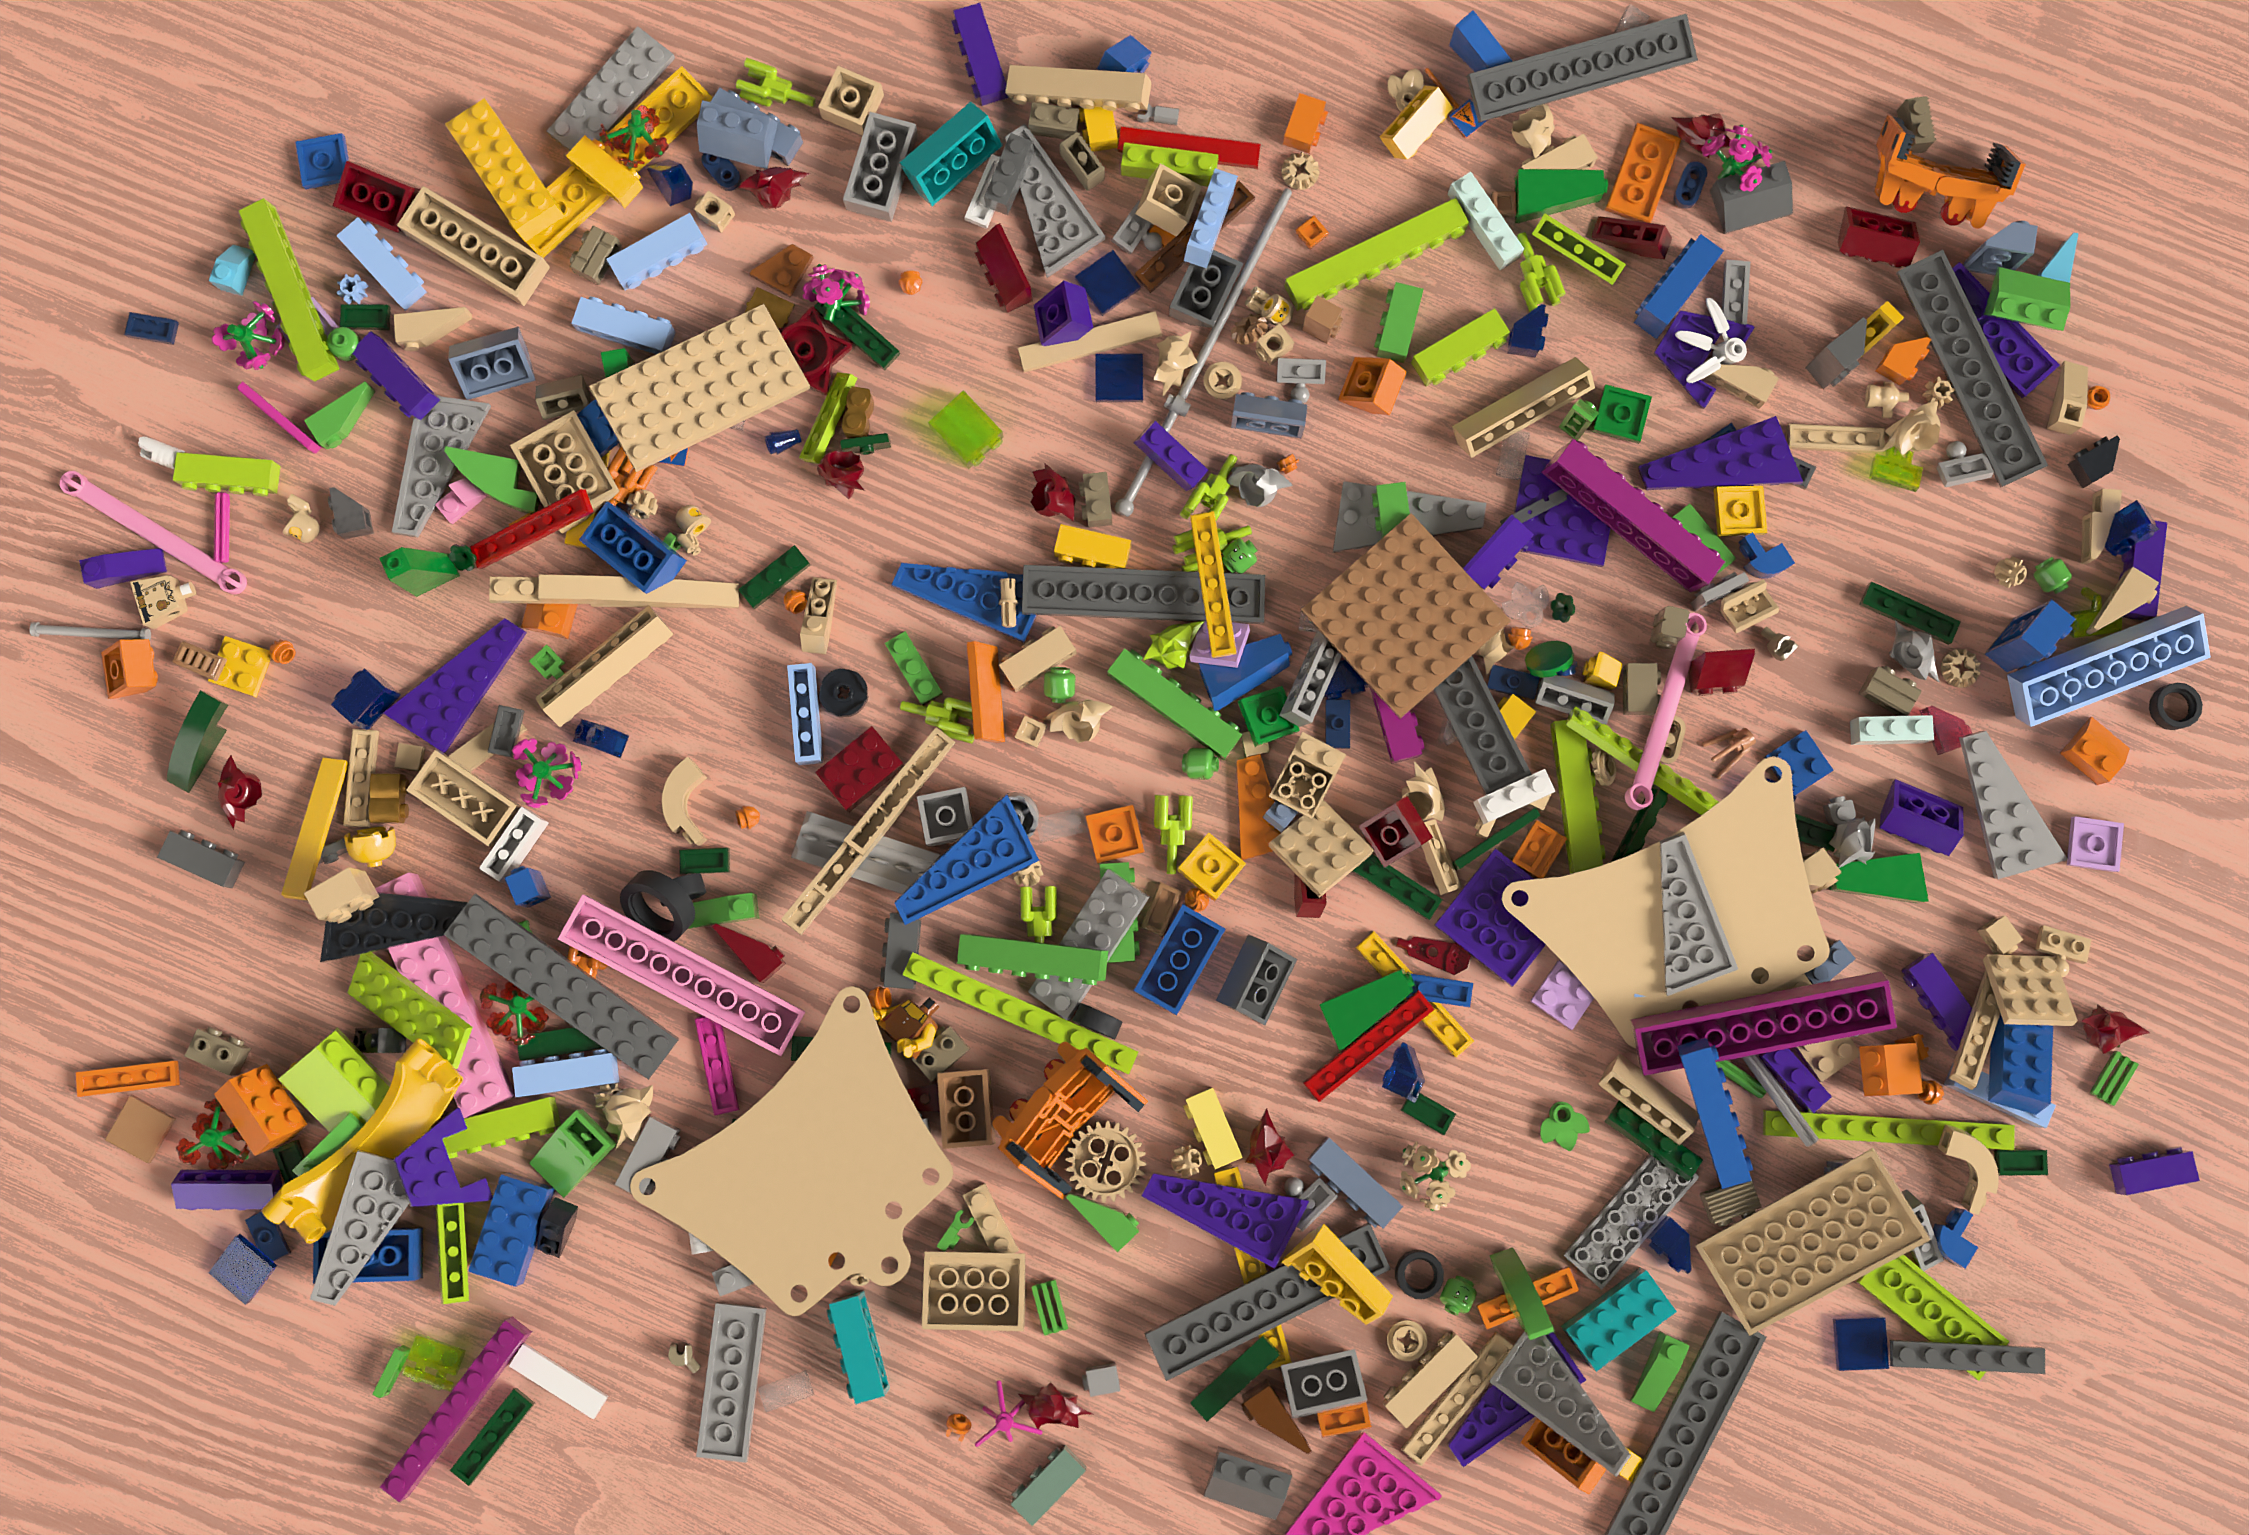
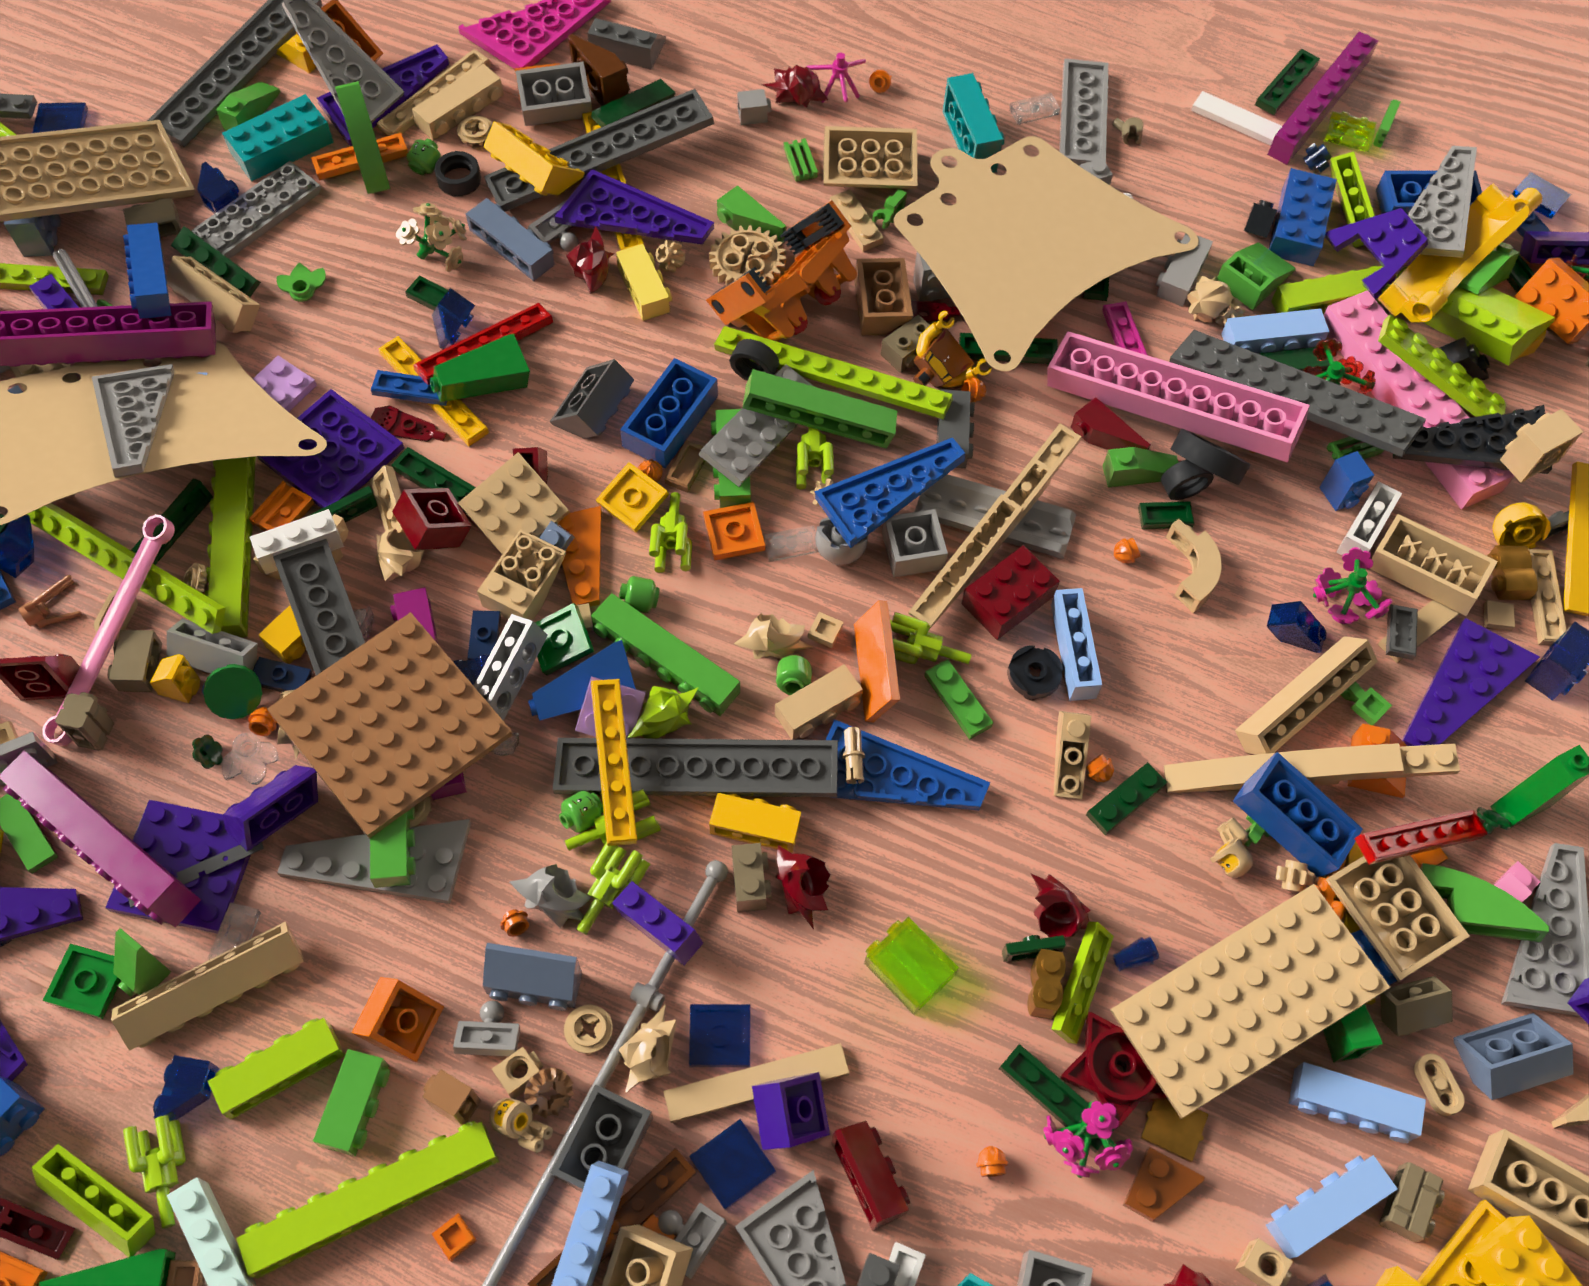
camera: 175 degrees right, 20 degrees down
(479, 1315) = (1317, 157): none -> dark blue gear
(556, 342) = (1438, 1085): none -> tan plate
(1047, 1484) = (800, 40): sand green brick -> none

